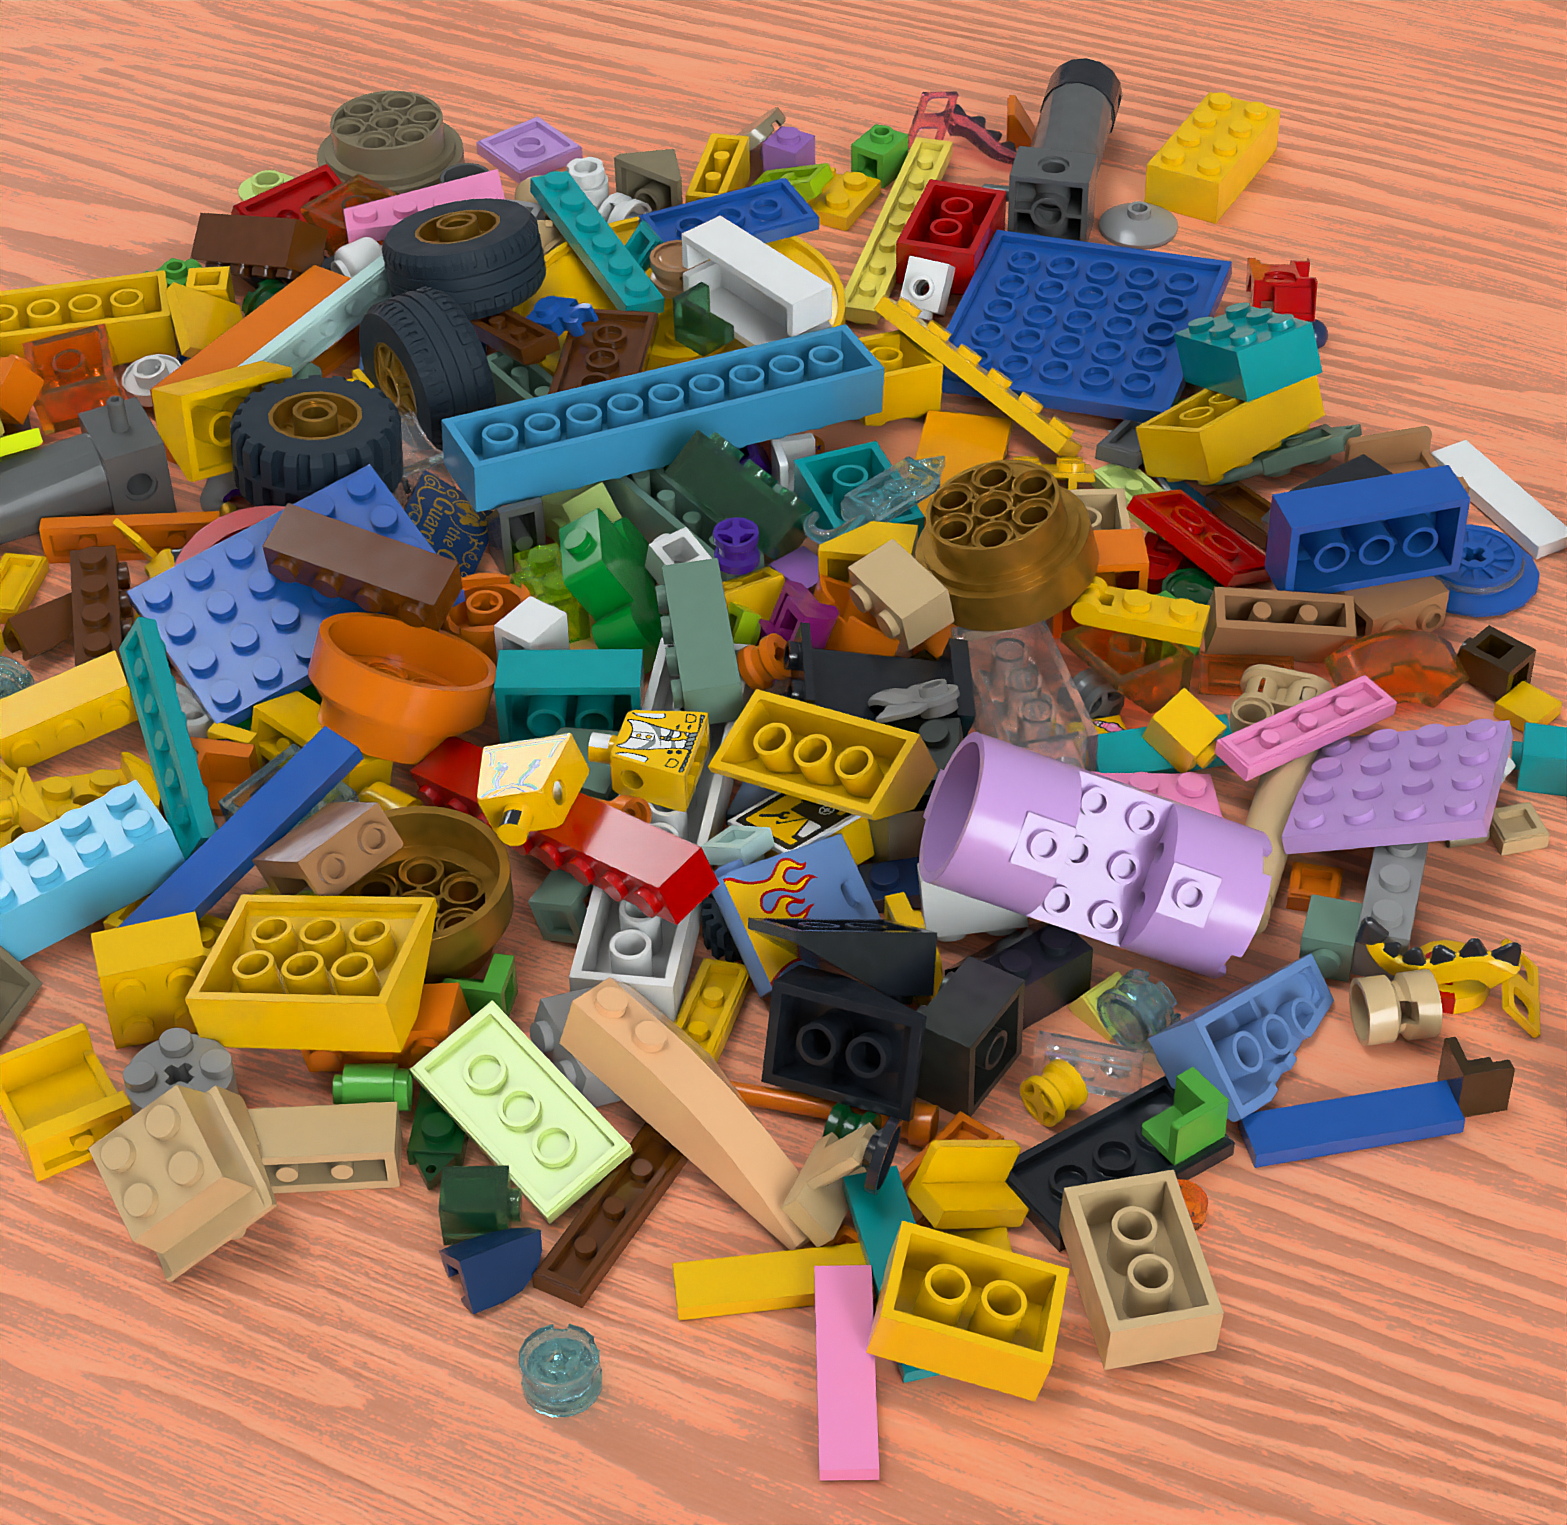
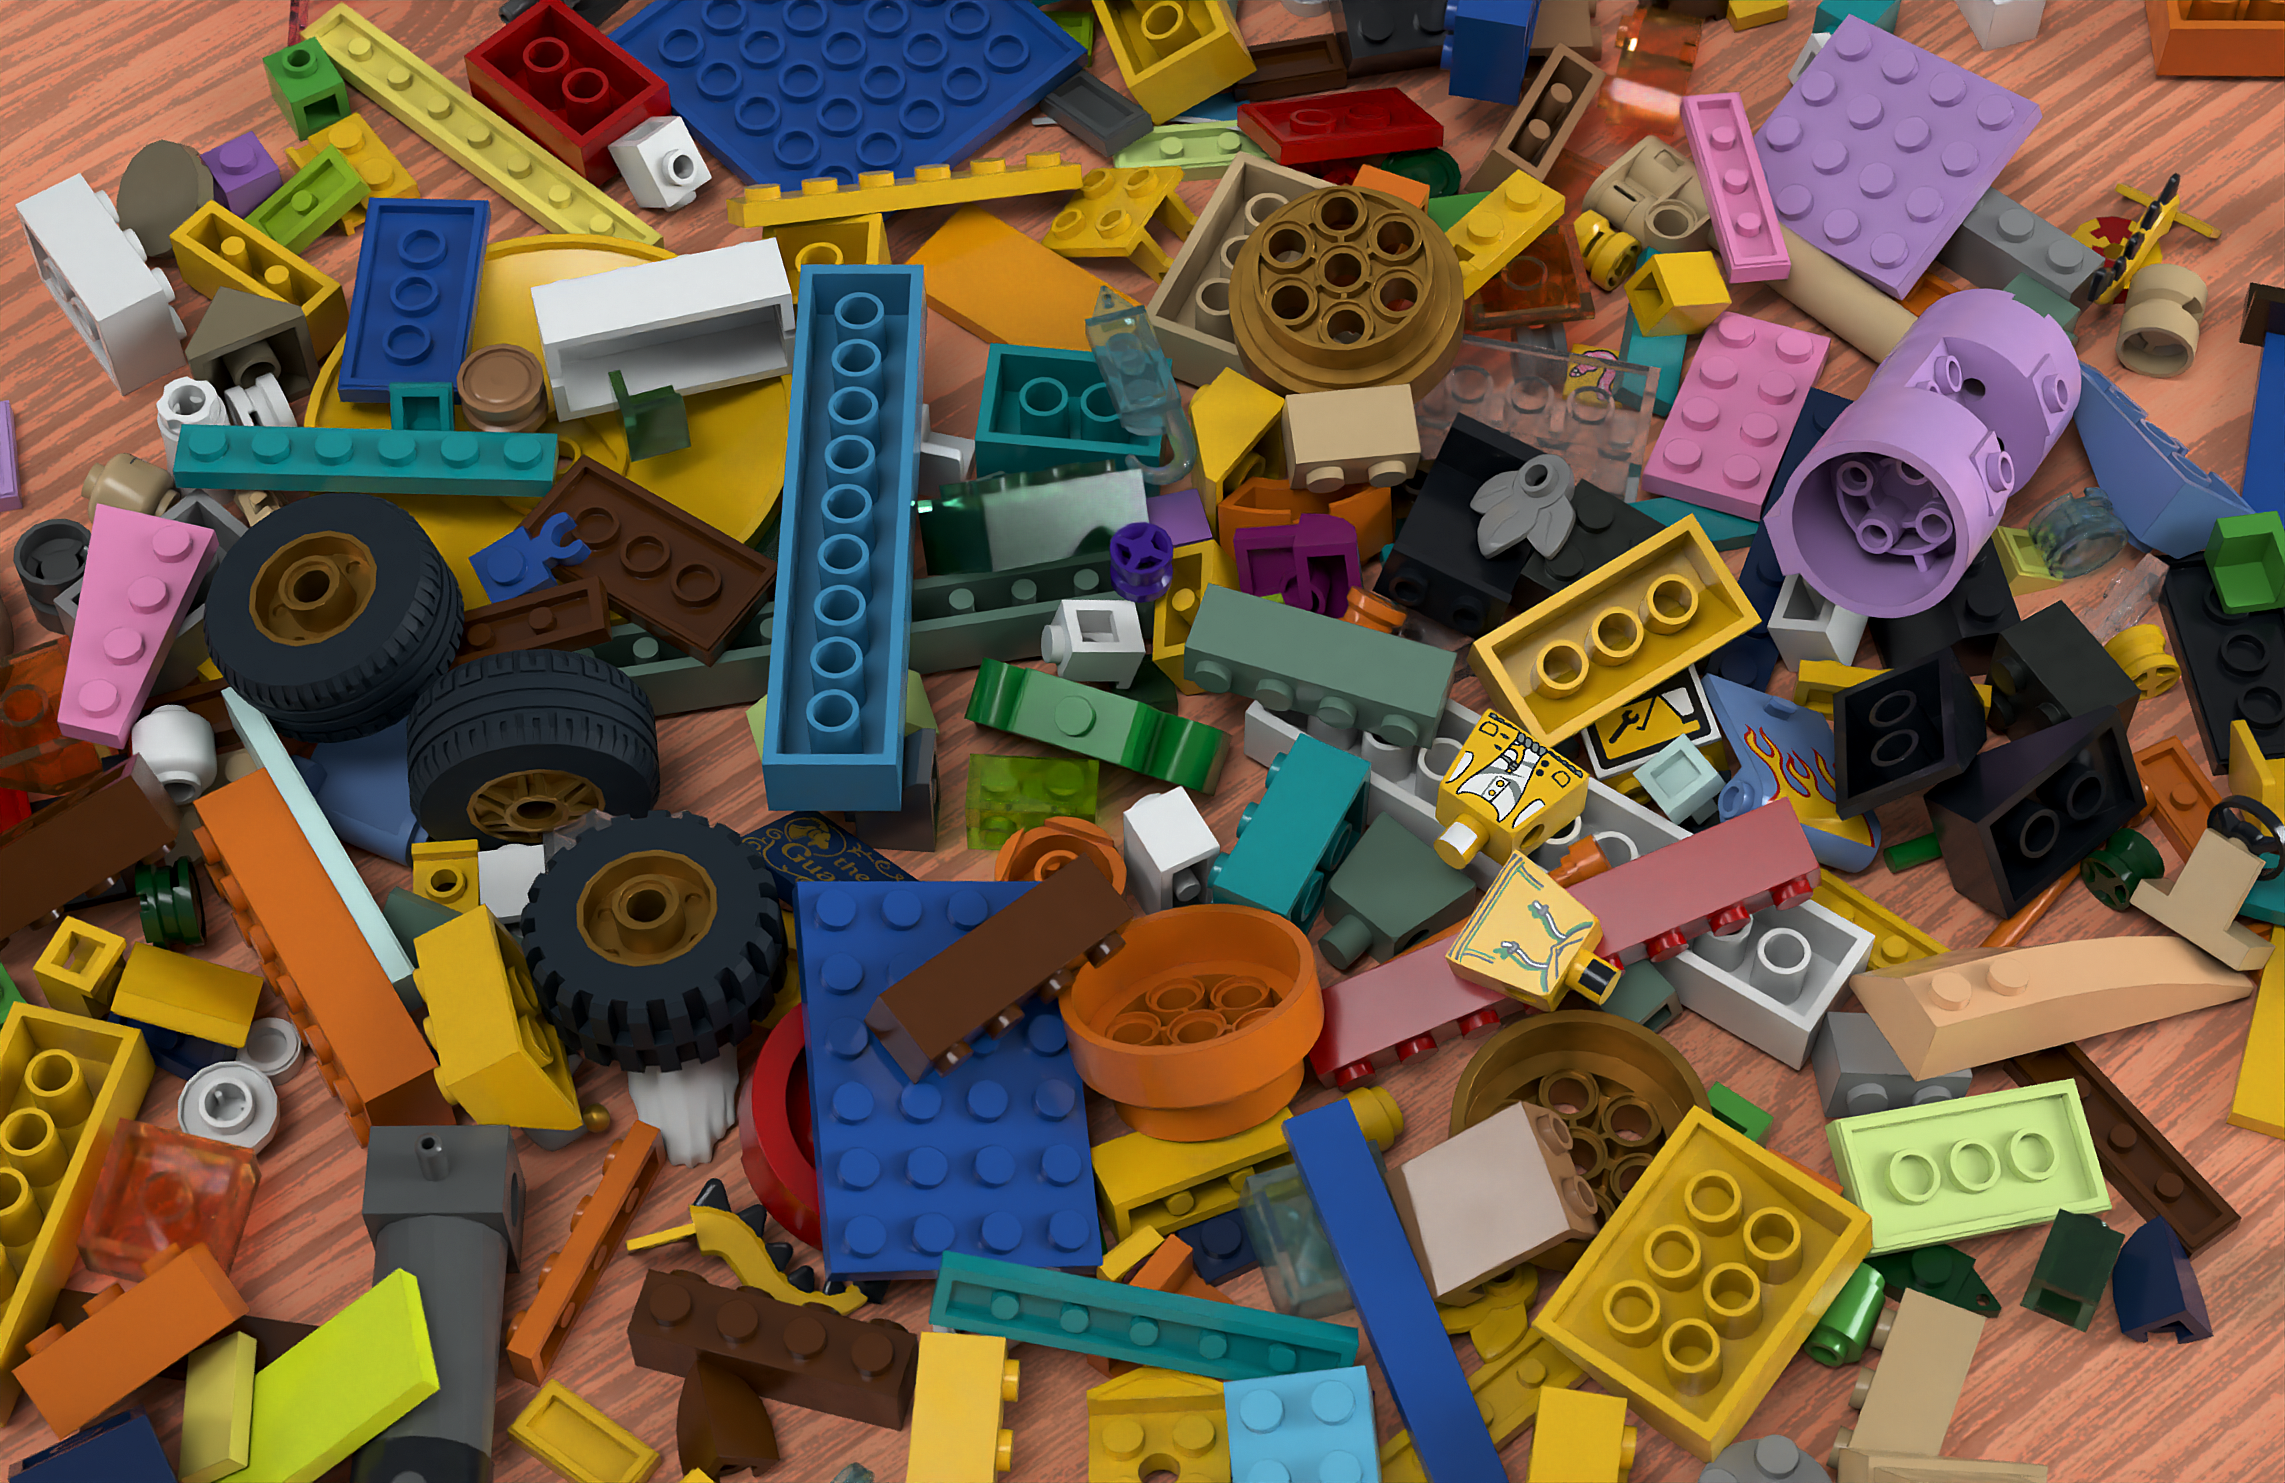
camera: 65 degrees left, 15 degrees up
(673, 116) = (104, 283): none -> white brick
(1214, 689) = (1604, 252): none -> yellow wheel

